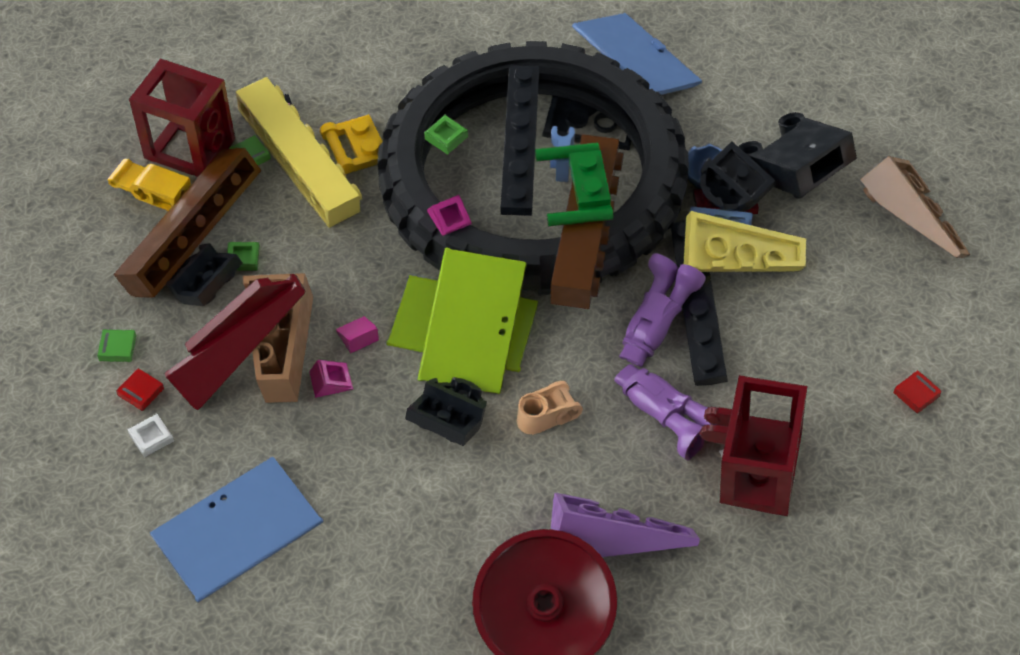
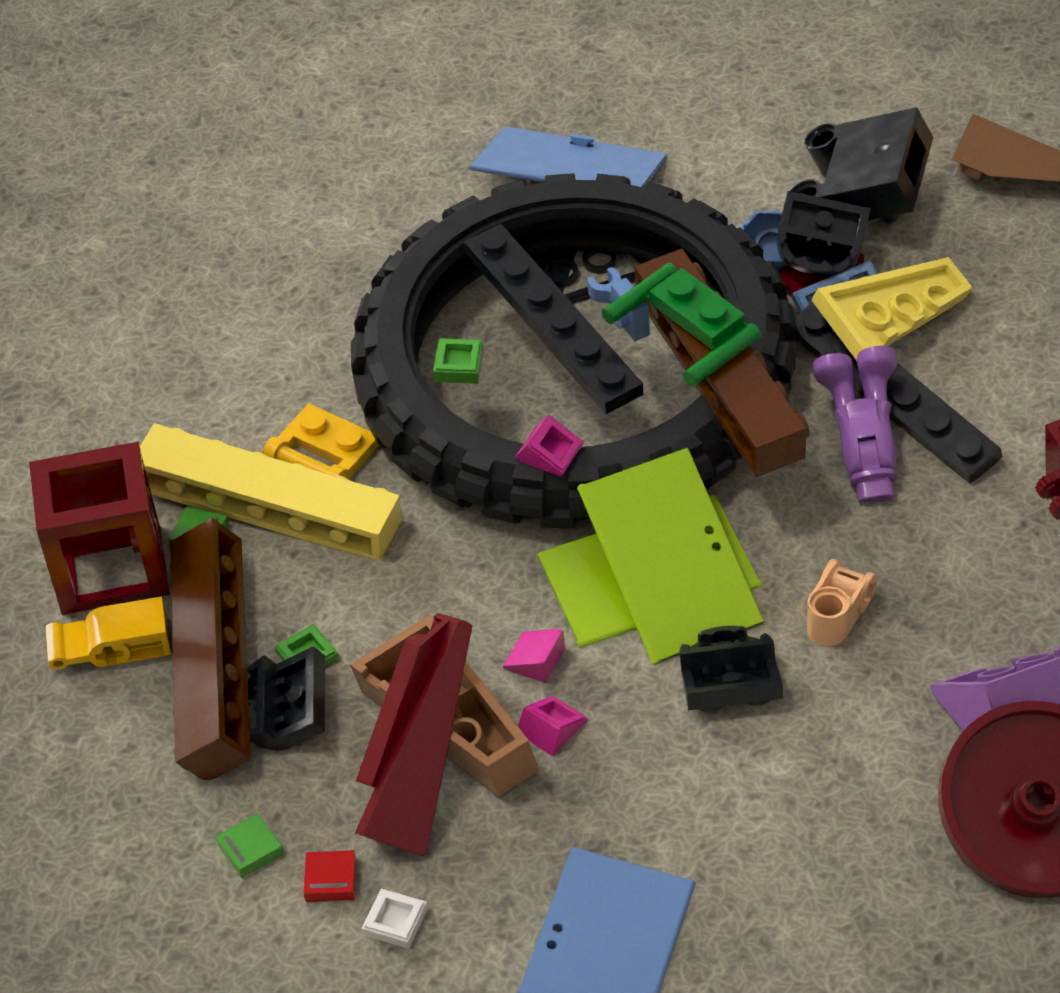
camera: 30 degrees left, 5 degrees down
(666, 405) = (967, 518): medium lavender piece -> none

